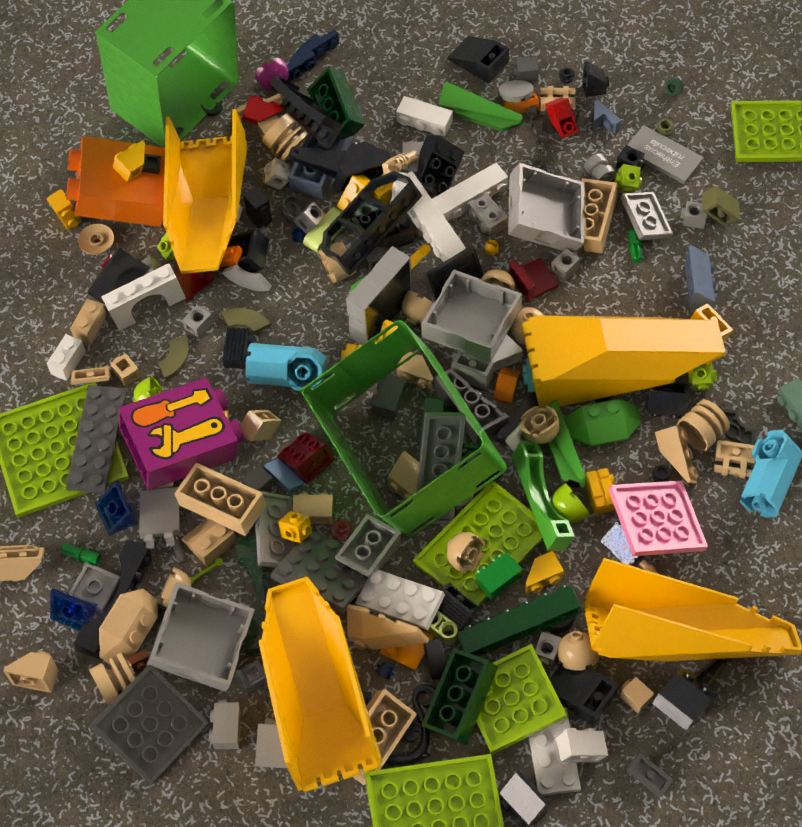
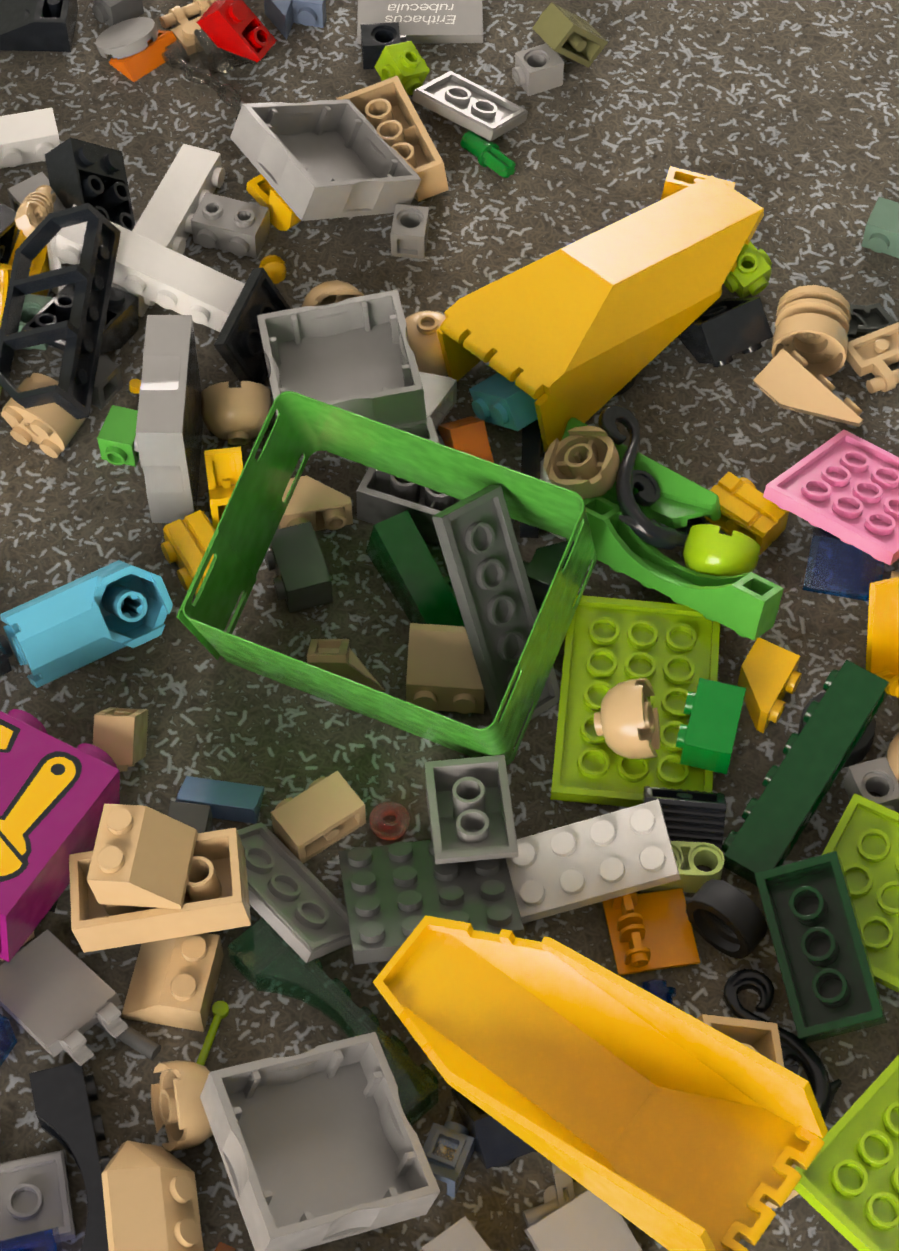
camera: 40 degrees left, 5 degrees down
(216, 481) = (141, 858): none -> tan slope
(295, 526) = (320, 858): yellow brick -> none
(307, 456) = (236, 736): dark red bracket -> none
(372, 449) = (338, 658): none -> tan slope
(380, 632) = (619, 923): tan wedge -> none
(478, 109) = (87, 89): bright green wedge -> none
(532, 278) = (376, 271): dark red bracket -> none
(553, 443) = (628, 478): none -> black plant
(599, 168) = (344, 76): light grey wheel -> none
(603, 422) = (671, 411): bright green wedge -> none
(661, 473) = (804, 437): black plate -> none
(699, 279) = (623, 149): sand blue slope -> none

